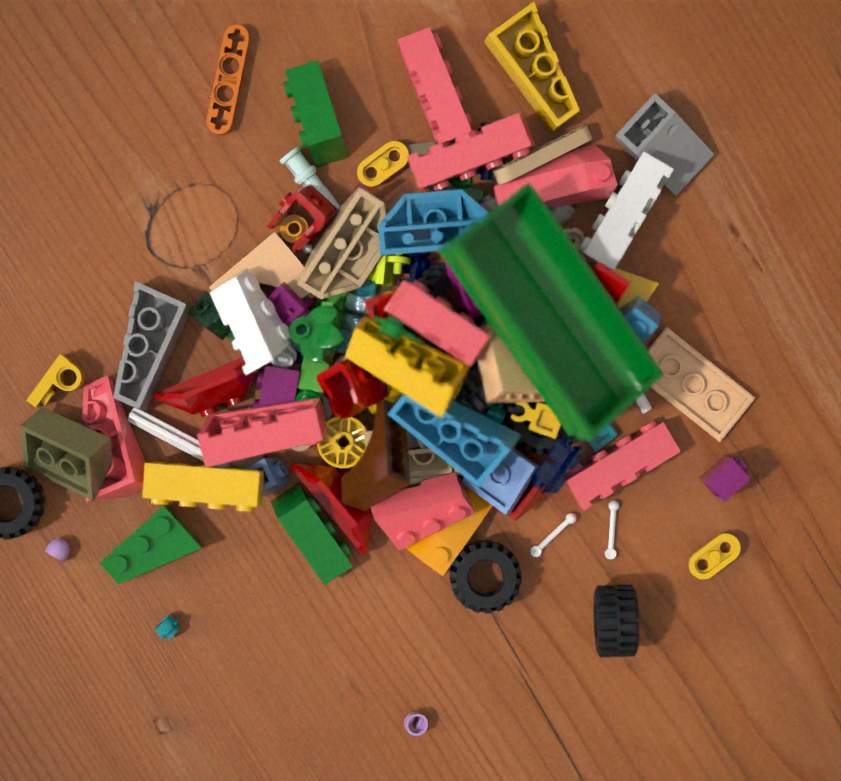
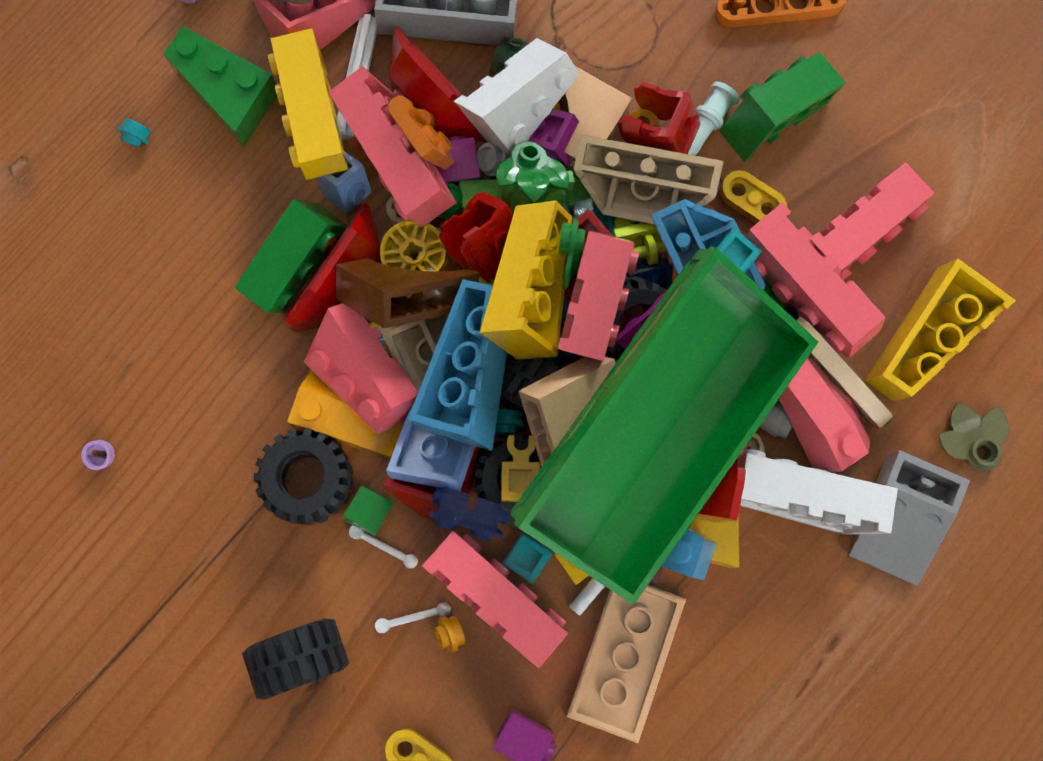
camera: 70 degrees right, 10 degrees down
(269, 404) = (418, 128): none -> orange plate
(433, 204) = (739, 249): none -> teal tile
(524, 537) = (368, 510): none -> green tile
(617, 66) = (971, 432): none -> olive plate
(633, 507) = (449, 633): none -> light orange plate

